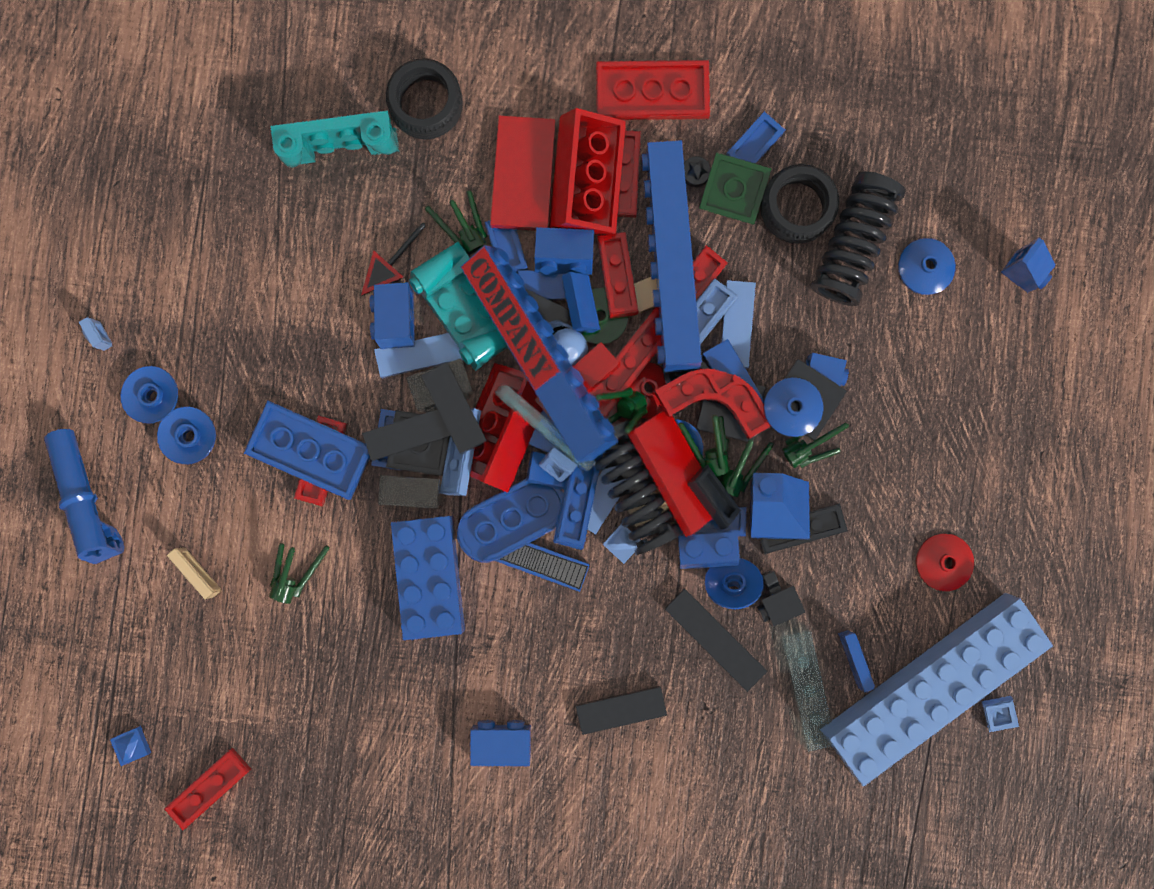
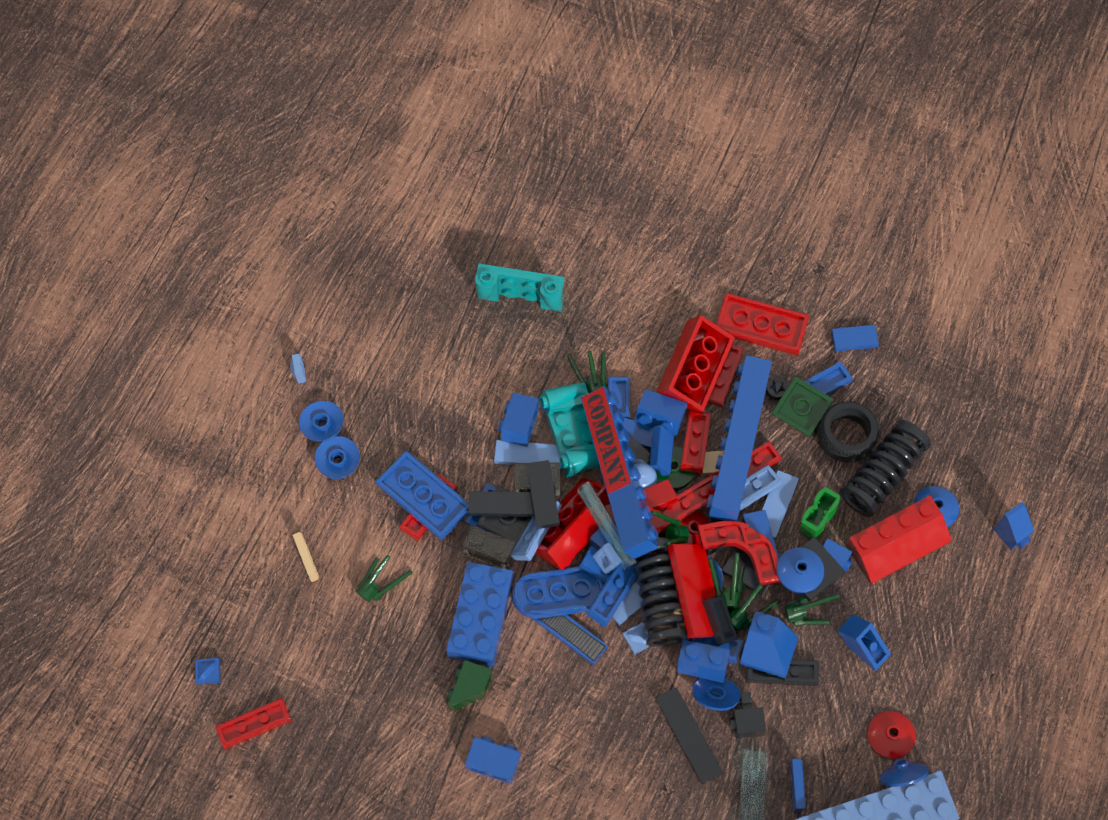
camera: 20 degrees right, 20 degrees down
(91, 537) = (243, 477): blue piece -> none
(382, 271) = (520, 386): piece -> none
(418, 71) = (597, 262): black tyre -> none
(445, 664) = (470, 685): none -> dark green slope
(523, 173) = (647, 351): red tile -> none
(621, 710) = (596, 766): black tile -> none
(772, 73) = (854, 338): none -> blue tile
(793, 329) = (819, 513): none -> green brick
(887, 463) = (864, 641): none -> blue slope
(898, 324) = (900, 539): none -> slope
(976, 612) = (904, 773): none -> blue dish

